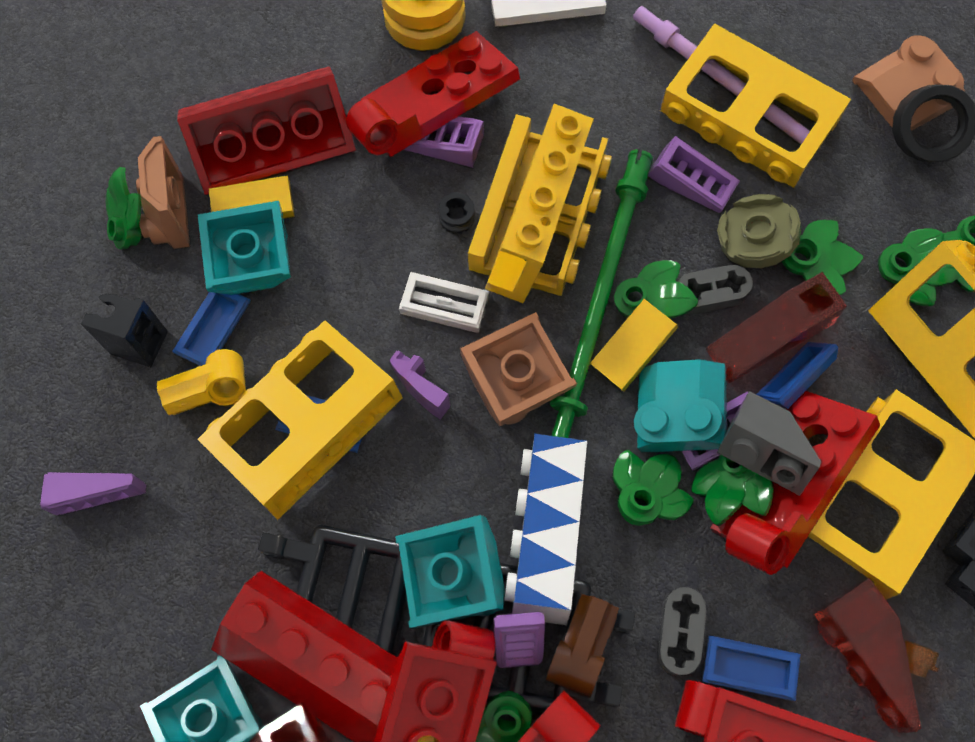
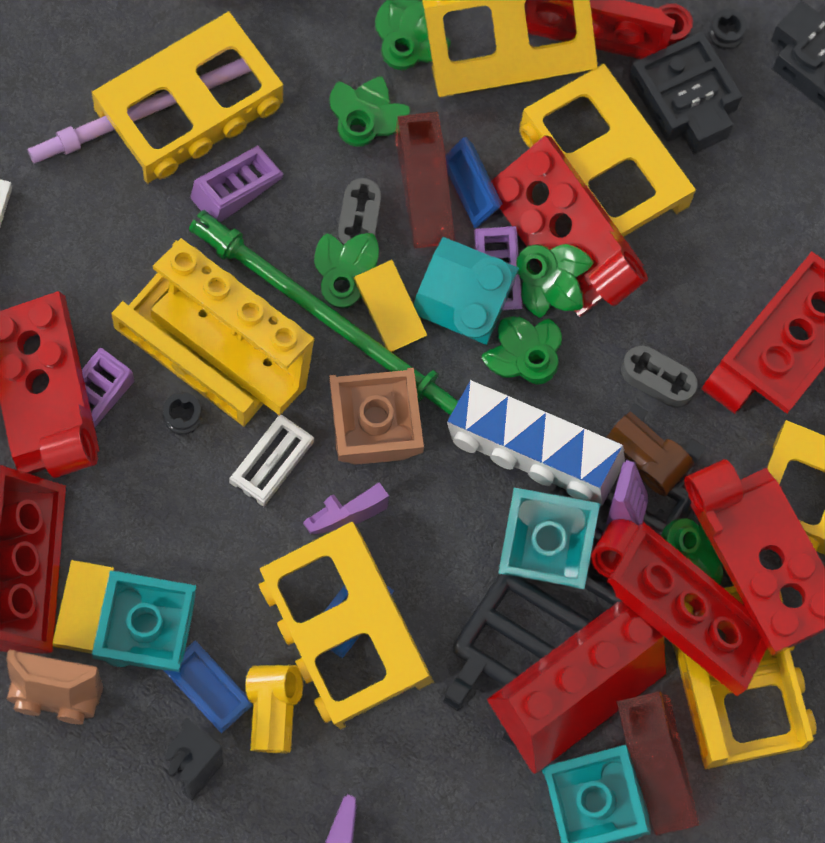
camera: 80 degrees left, 0 degrees up
(122, 211) = (47, 732): green plate -> none
(751, 668) = (708, 334): blue tile -> none
(759, 231) = (321, 151): olive tile -> none
(770, 444) = (537, 230): dark grey slope -> none
(874, 646) = (724, 231): clear red slope -> none
(920, 659) = (746, 203): clear orange plate -> none

